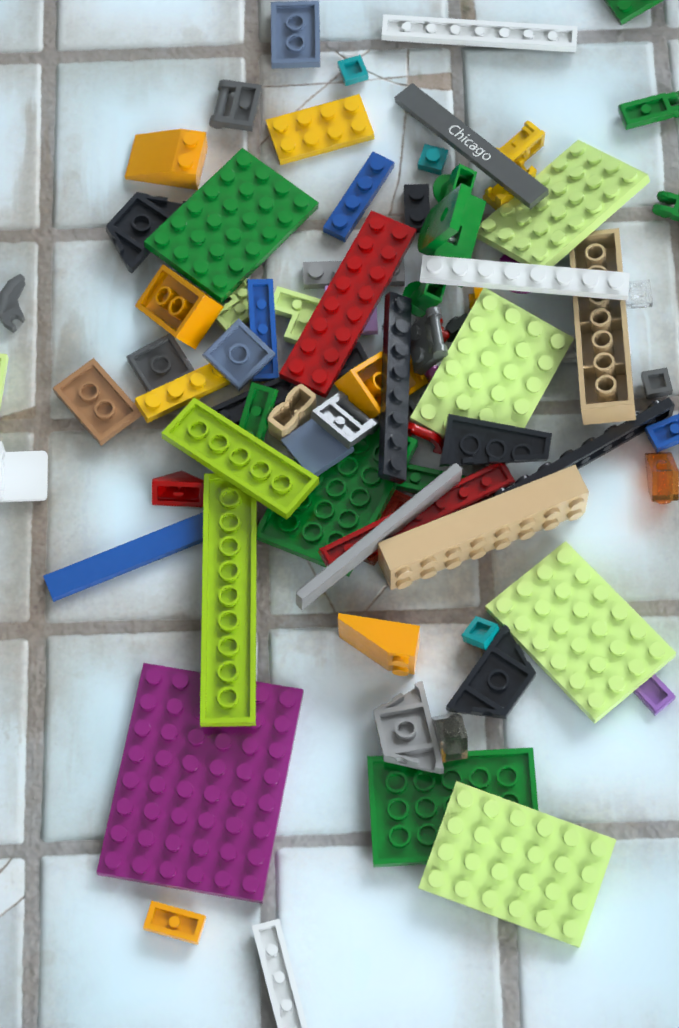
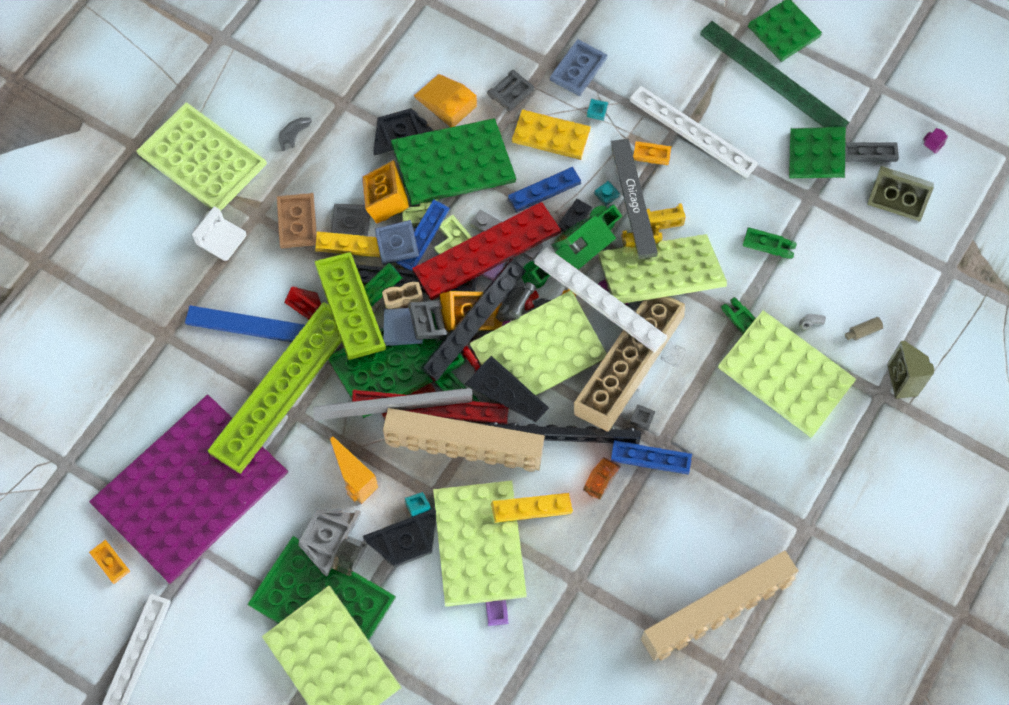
camera: 30 degrees right, 0 degrees up
(451, 84) = (652, 153): none -> light orange plate
(610, 555) = (531, 507): none -> yellow plate

